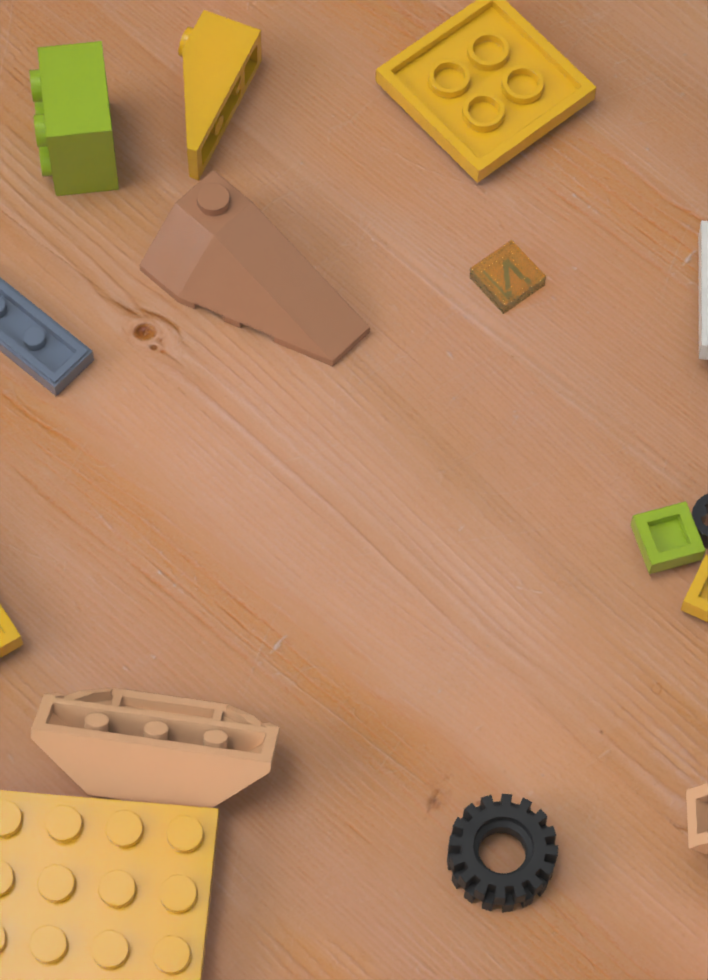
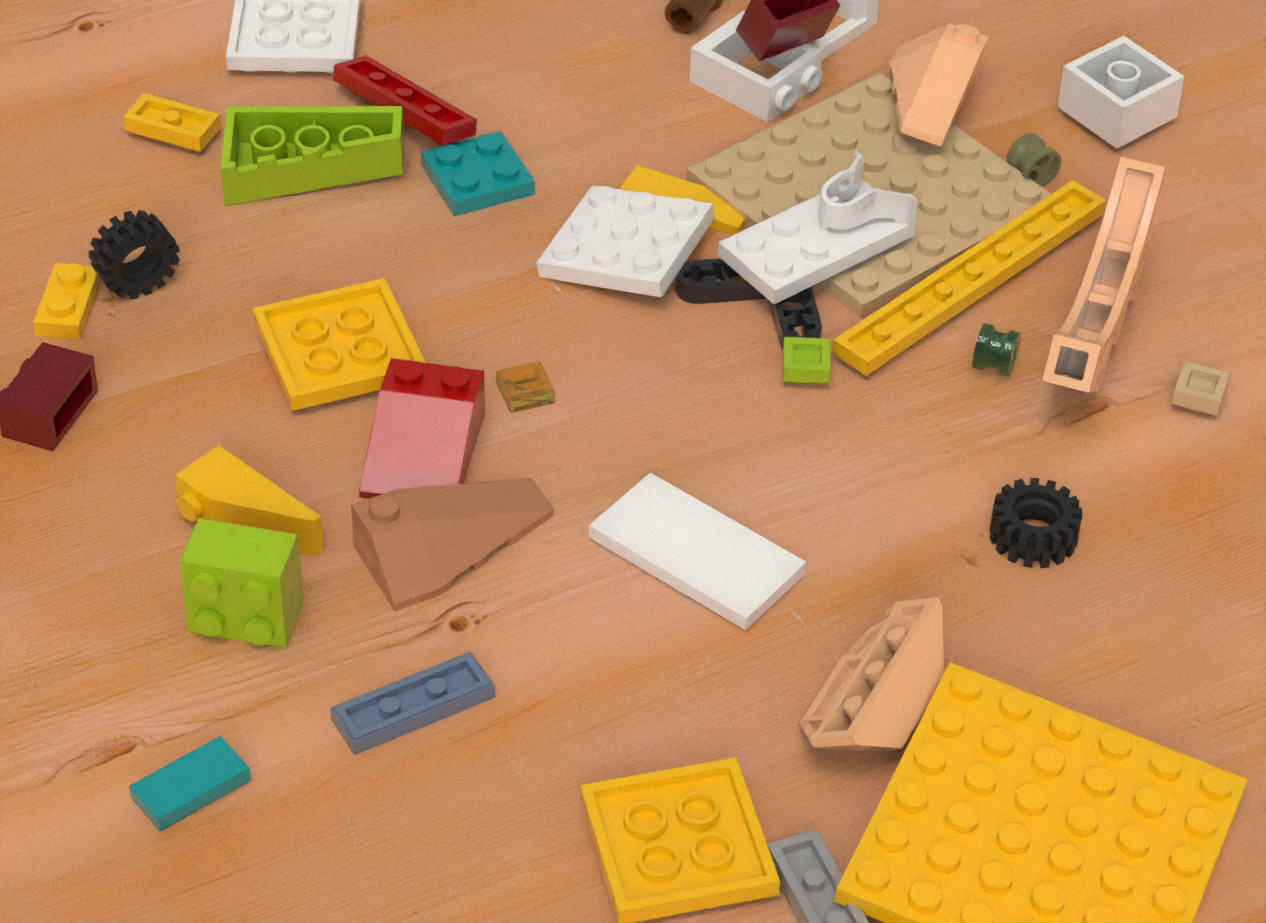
camera: 70 degrees left, 20 degrees down
(325, 517) = (697, 550): none -> white tile
(378, 205) = (423, 427): none -> slope

